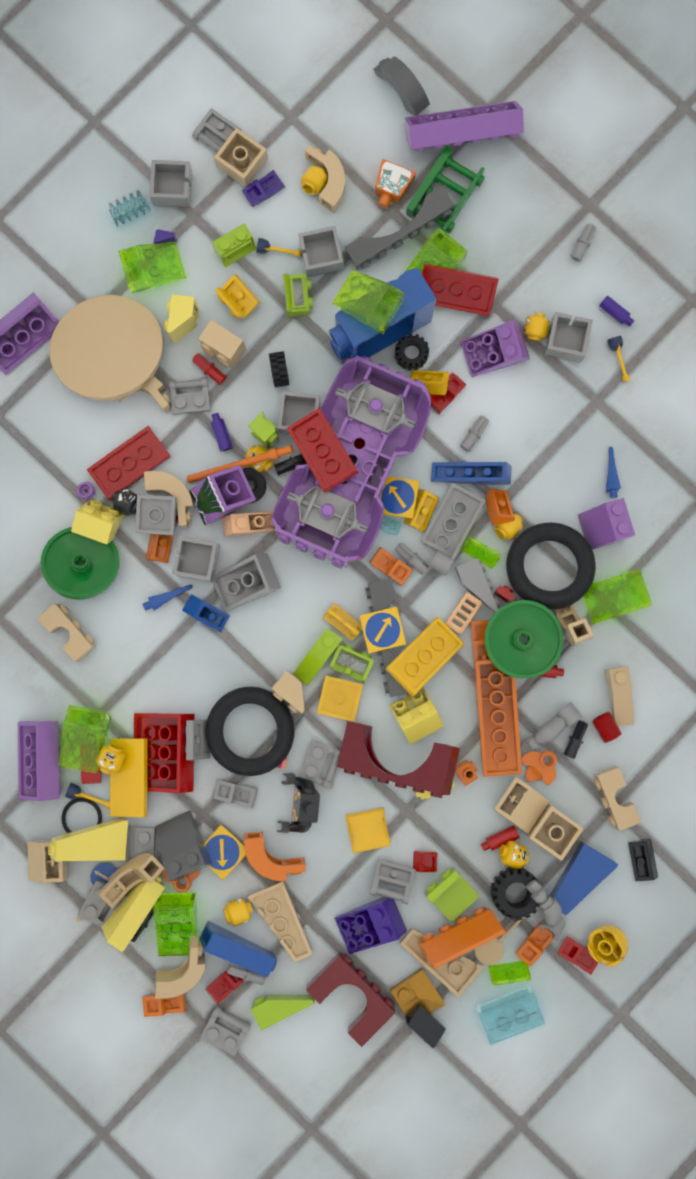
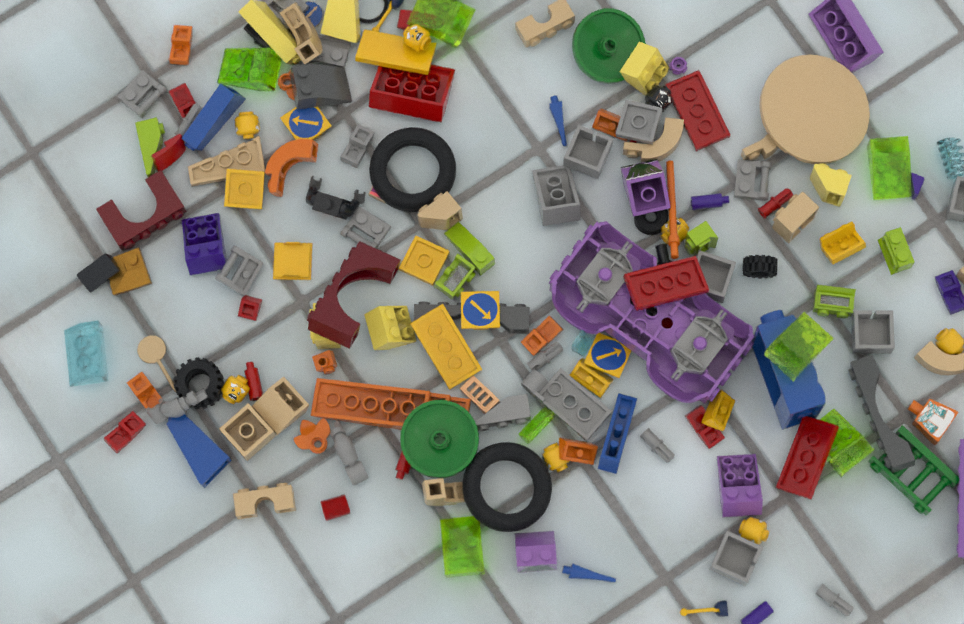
camera: 105 degrees right, 10 degrees down
(183, 978) = (198, 61): tan arch -> none
(196, 742) = (415, 116): light grey plate -> none
(205, 613) = (534, 151): blue slope -> none
(247, 524) = (613, 205): light nougat slope -> none
(264, 246) = (890, 279): hinge -> none
(280, 981) = (167, 156): none -> red slope
(306, 898) = (244, 189): none -> yellow tile
(343, 622) = (498, 277): yellow hinge -> none
(411, 341) = (753, 389): black tyre -> none
(451, 894) = (213, 323): lime bracket -> none
(454, 974) = (152, 301): tan wing -> none
(460, 937) = (172, 320): orange slope -> none
(505, 593) = (489, 438): red plate -> none
(509, 973) = (125, 361): clear neon green slope -> none
(576, 739) = (330, 475): black axle -> none
(608, 945) = (128, 458): yellow cylinder -> none
(620, 695) = (363, 528): tan slope -> none
(643, 860) = (198, 516): black slope -> none

